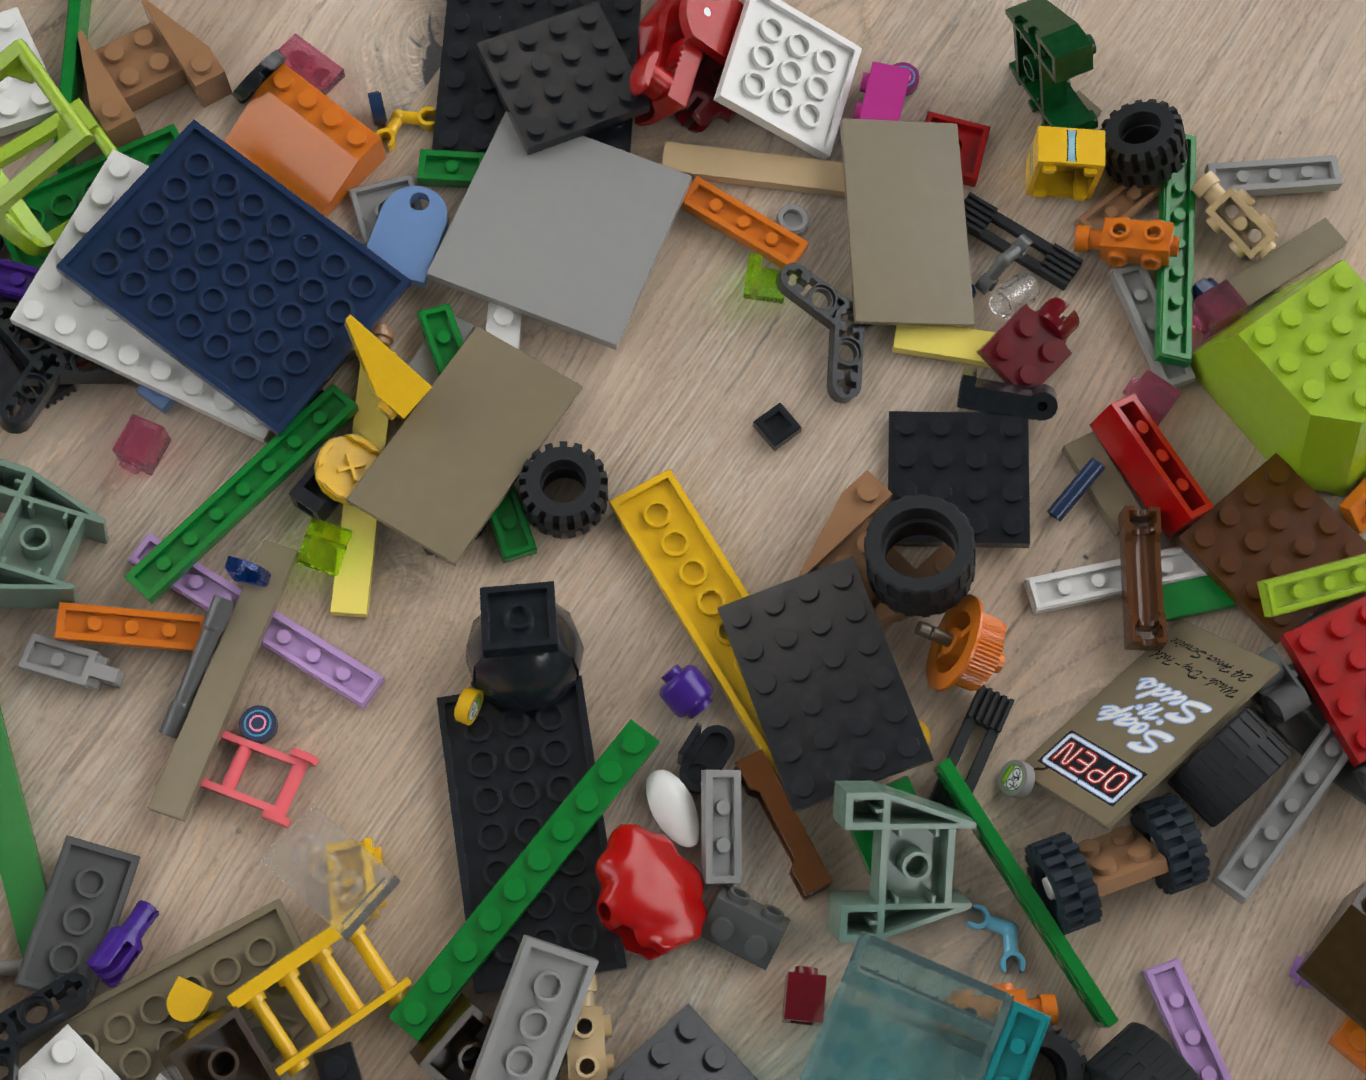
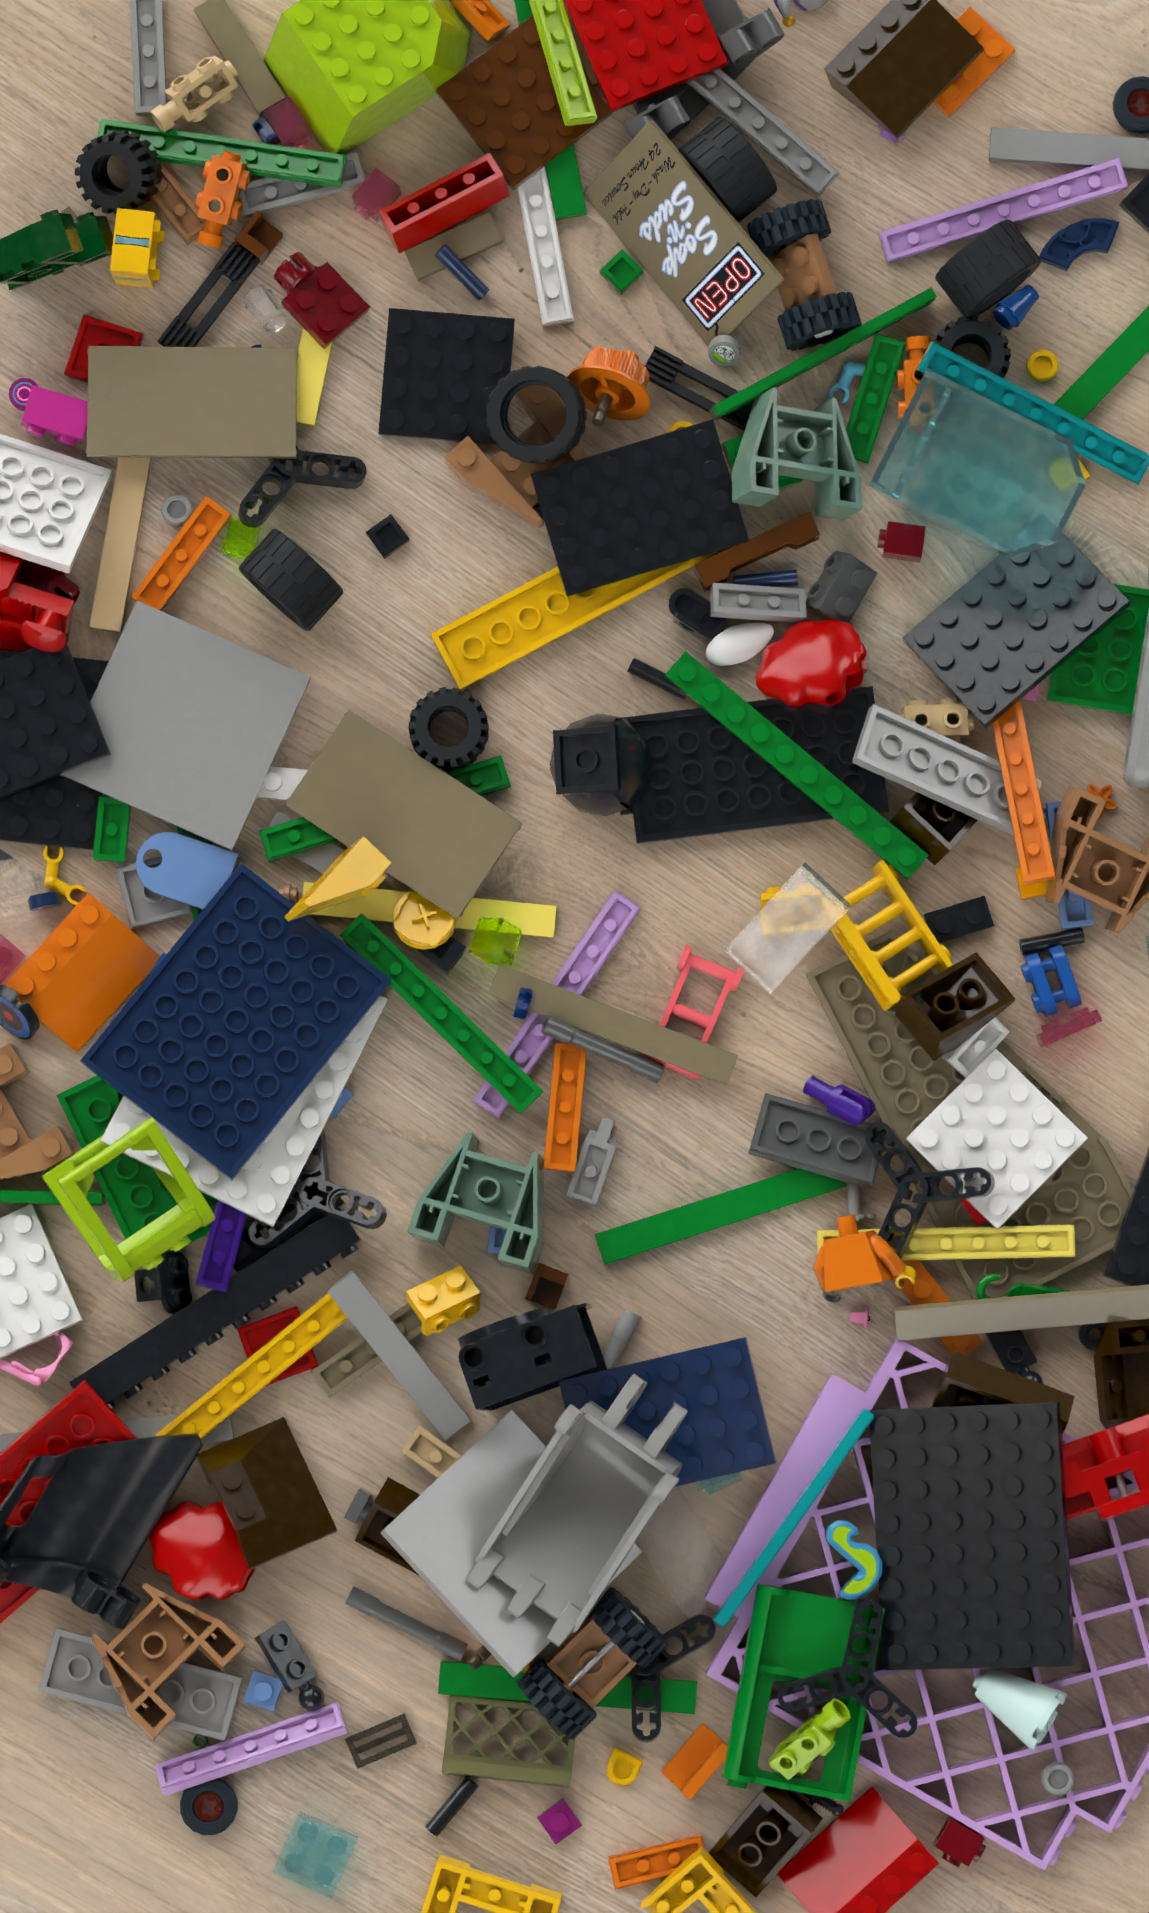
camera: 80 degrees left, 15 degrees up
(141, 445) = (391, 1110): clear pink brick -> none
(188, 1001) = (889, 1043): yellow tile -> none
(258, 724) = (652, 998): dark blue tile -> none
(468, 705) = (648, 812): yellow tile -> none
(634, 708) = (654, 677): none -> black piece
(685, 691) = (637, 628): dark purple head -> none
(718, 315) = (291, 579): none -> black tyre
(750, 840) = (770, 579): none -> dark blue piece
(982, 956) = (873, 395): none -> green tile
(1003, 260) = (235, 314): dark grey arm -> none
(1005, 398) = (371, 327): black leg -> none
(1090, 286) = (259, 237): none -> reddish brown panel
(1096, 663) = (621, 271): none -> green tile
(1142, 578) = (550, 223): reddish brown piece -> none

